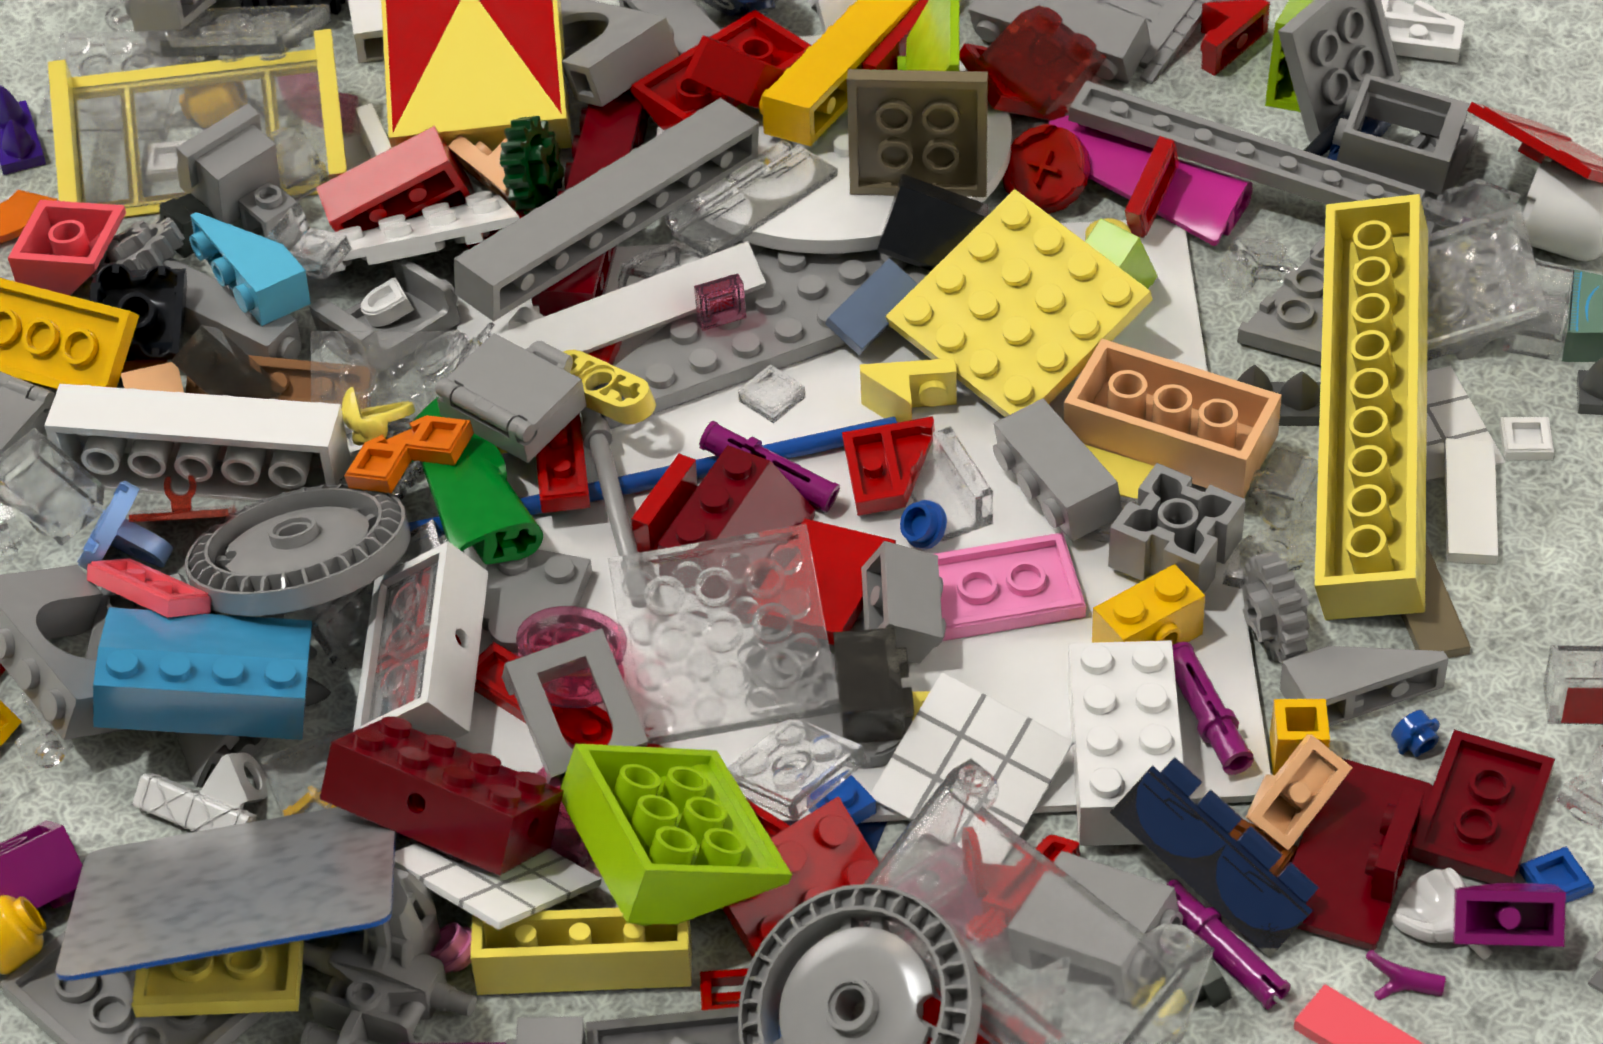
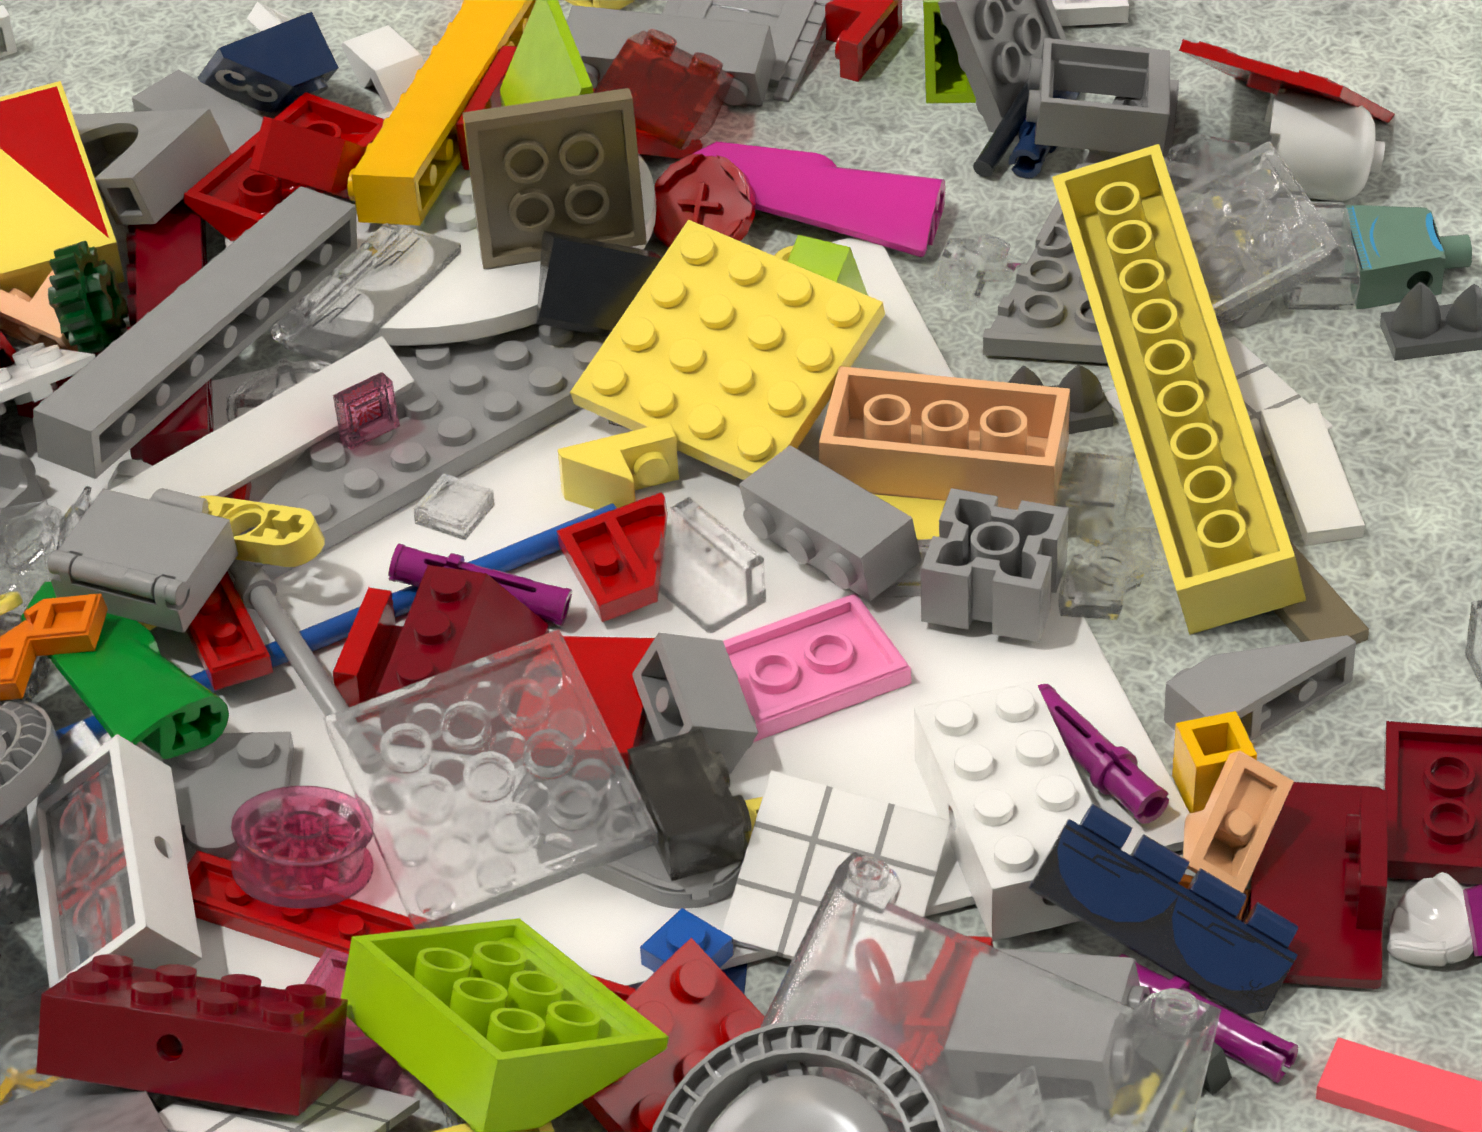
camera: 15 degrees left, 5 degrees down
(525, 680) = (267, 873): light grey panel -> none
(795, 767) = (625, 917): clear plate -> none
(863, 314) = (543, 392): sand blue tile -> none
(923, 524) = (688, 612): blue plate -> none
(1152, 187) = (837, 193): red tile -> none
(1154, 610) = (997, 652): yellow brick -> none
(1230, 148) = (903, 145): light grey plate -> none
(1275, 606) = (1137, 623): light grey gear -> none
(1405, 978) = (1428, 1011): magenta bar -> none
(1416, 733) = (1342, 736): blue plate -> none
(1526, 438) = (1348, 396): white tile -> none

